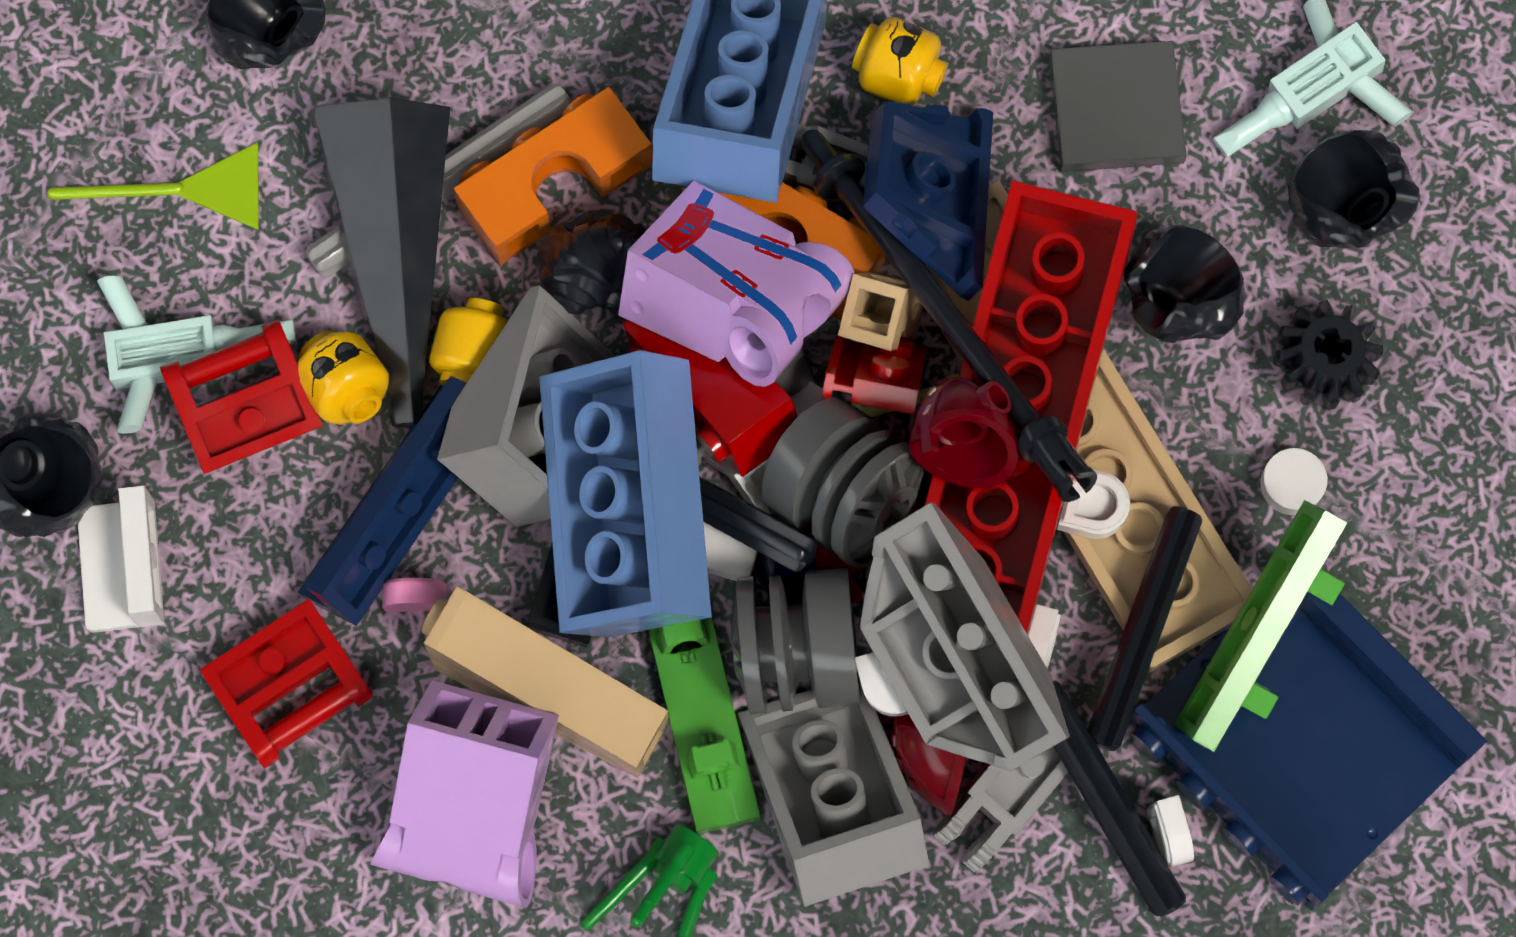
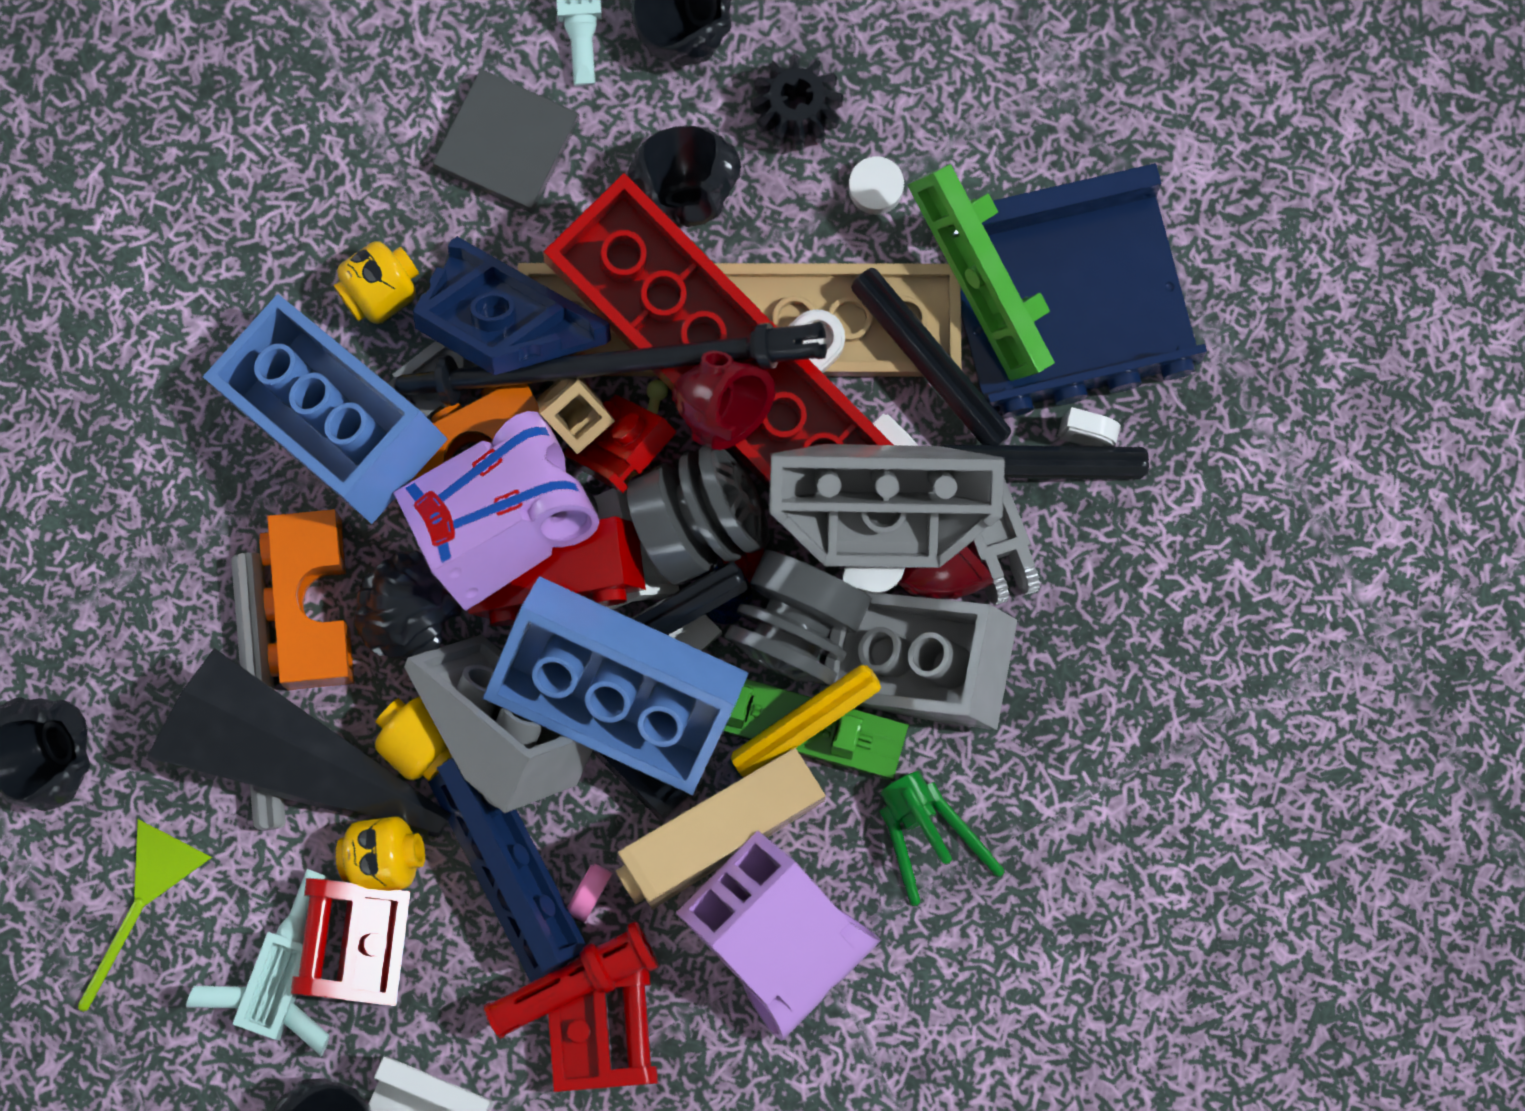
camera: 60 degrees left, 5 degrees up
(336, 638) = (595, 970): none -> red pin
(704, 707) = (806, 720): none -> yellow axle

